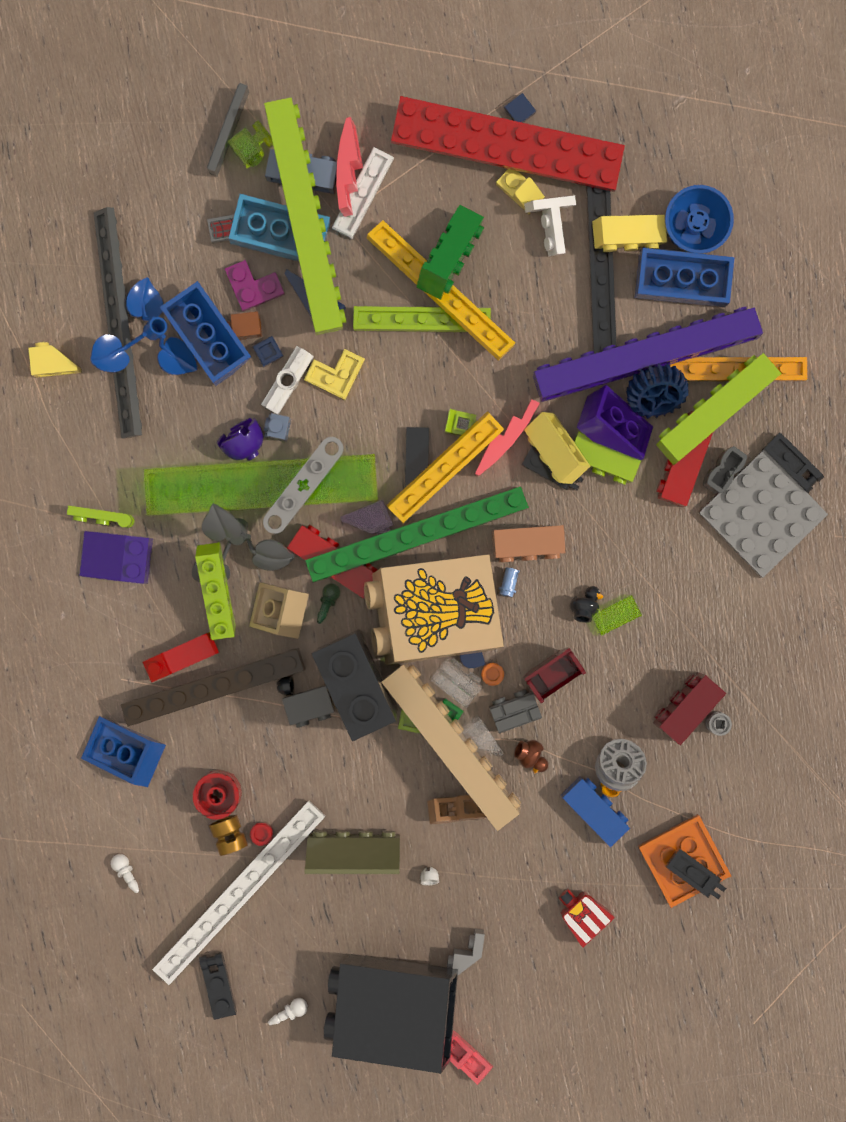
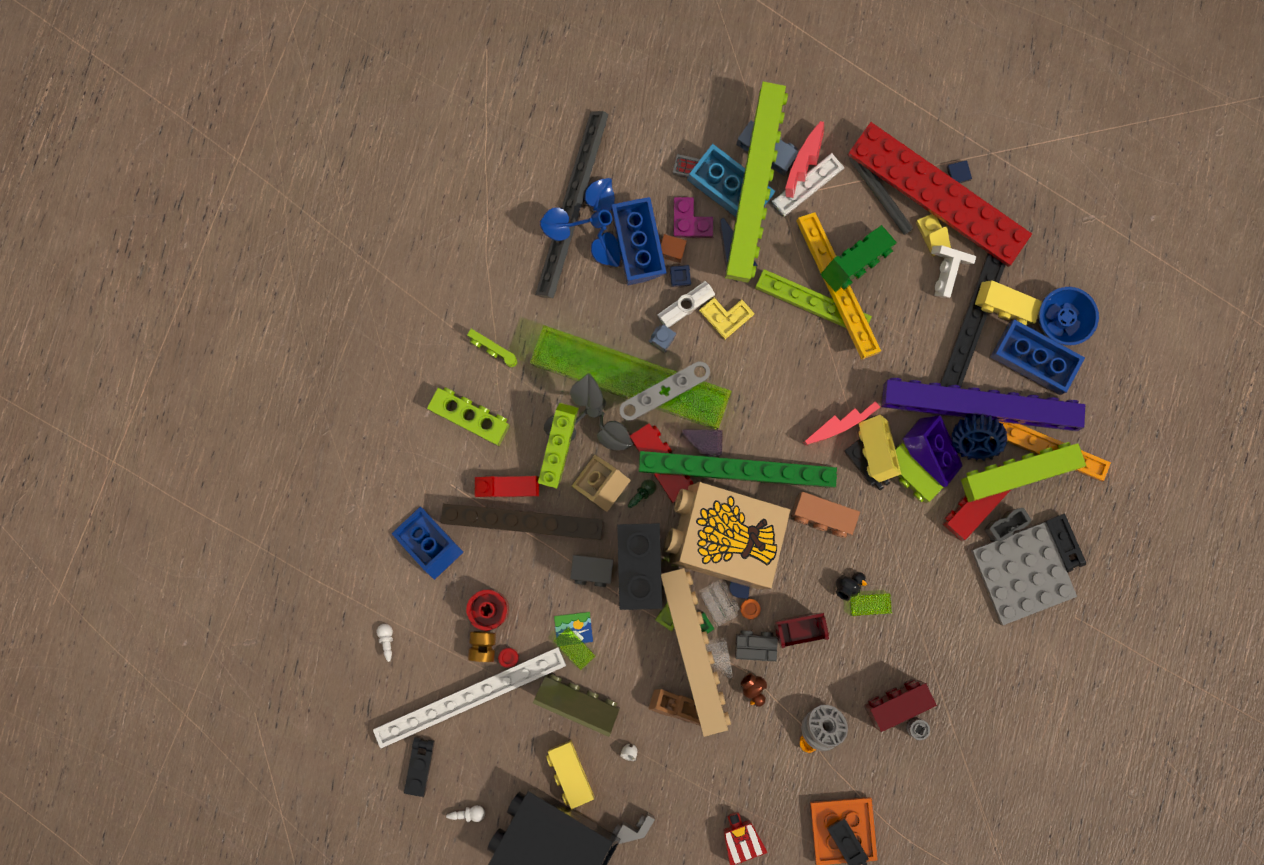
camera: 25 degrees right, 5 degrees down
(49, 361) = (505, 211): light yellow slope -> none
(71, 601) = (439, 406): none -> lime brick
(116, 557) = (490, 385): dark purple slope -> none
(228, 129) = (723, 92): dark grey tile -> none
(242, 441) = (630, 336): dark purple cylinder -> none
(248, 147) = (733, 111): clear neon green brick -> none
(285, 686) = (580, 546): black hinge -> none
(316, 774) = (579, 623): none -> sticker
(326, 794) = (574, 648): none -> clear neon green tile
(378, 926) = (570, 774): none -> light yellow brick
(416, 452) = (761, 412): black tile -> none
(445, 467) = (783, 425): yellow plate -> none
(451, 173) = (883, 196): none -> dark grey axle
(459, 422) = (810, 397): lime window -> none
(509, 582) = (795, 540): light blue pin -> none
(596, 810) = (788, 757): blue brick -> none

